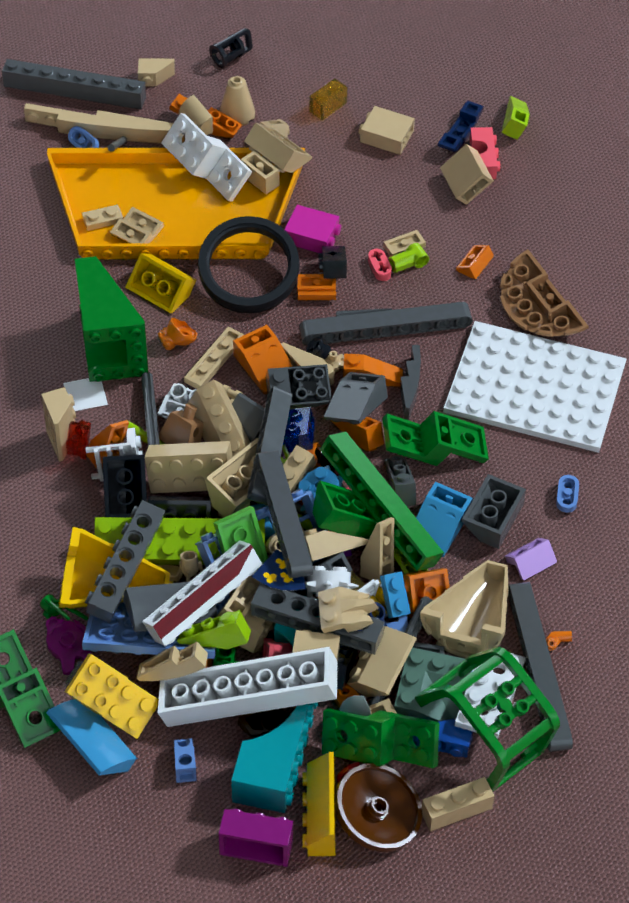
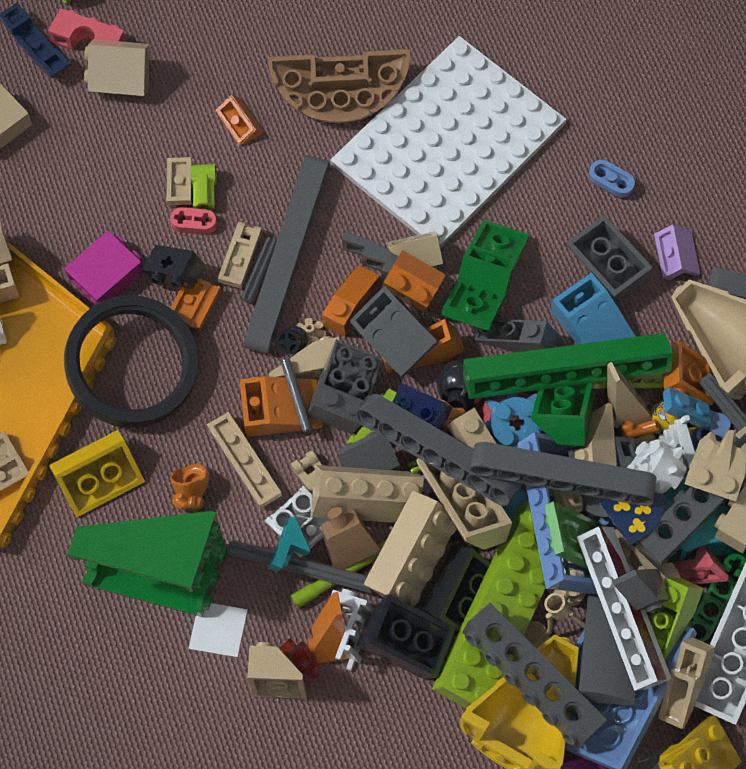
camera: 60 degrees left, 15 degrees up
(163, 394) = (290, 539): none -> teal slope
(219, 591) = (643, 589): none -> dark grey slope
(275, 362) = (296, 395): none -> dark grey bar
(359, 571) = (633, 431): none -> orange arm
(369, 298) = (240, 255): none -> tan plate
(400, 391) = (413, 281): none -> orange slope
(430, 394) = (422, 246): none -> tan slope

